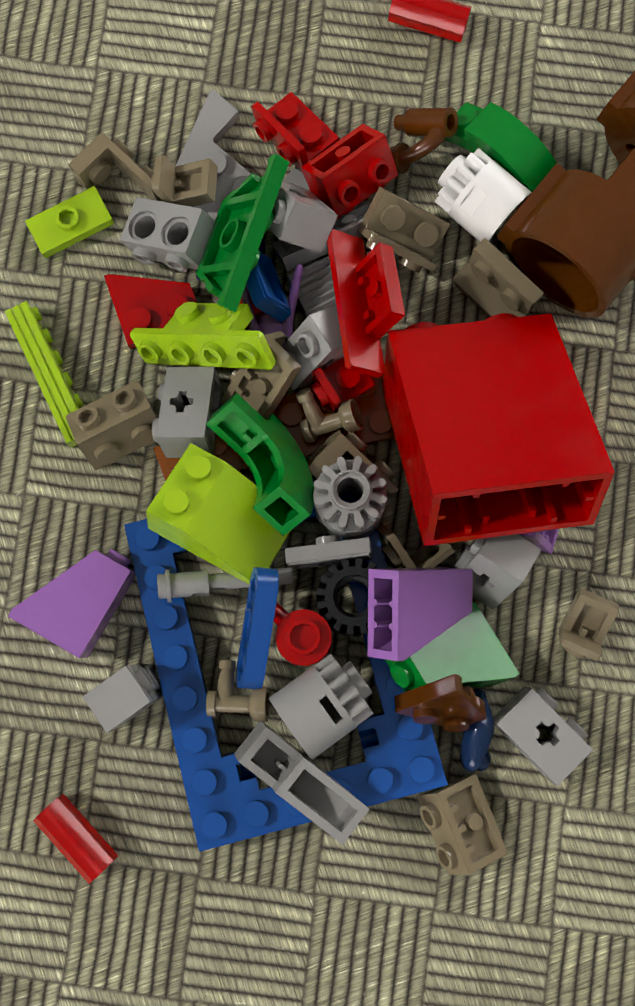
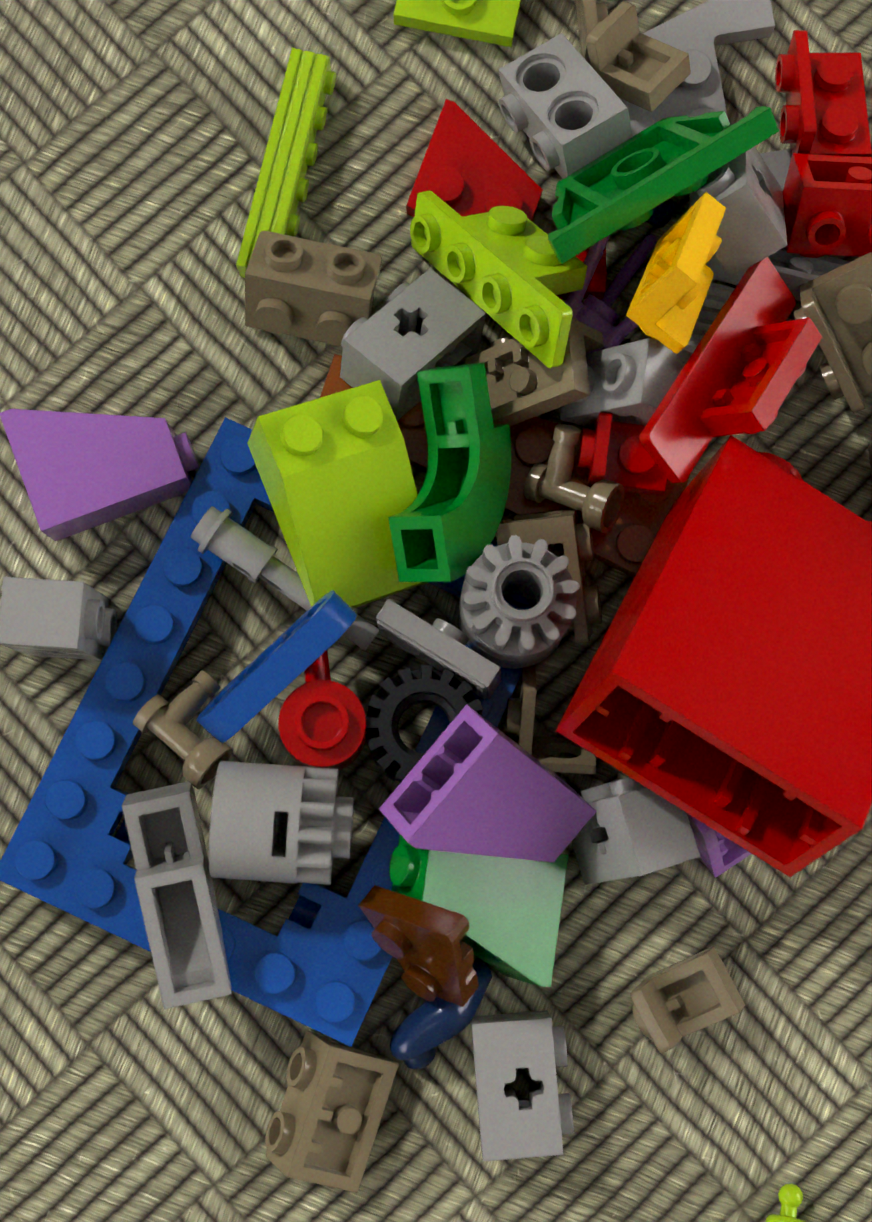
camera: 40 degrees right, 0 degrees up
(267, 290) = (624, 265): blue tile -> none
(297, 272) = (678, 276): none -> yellow bracket

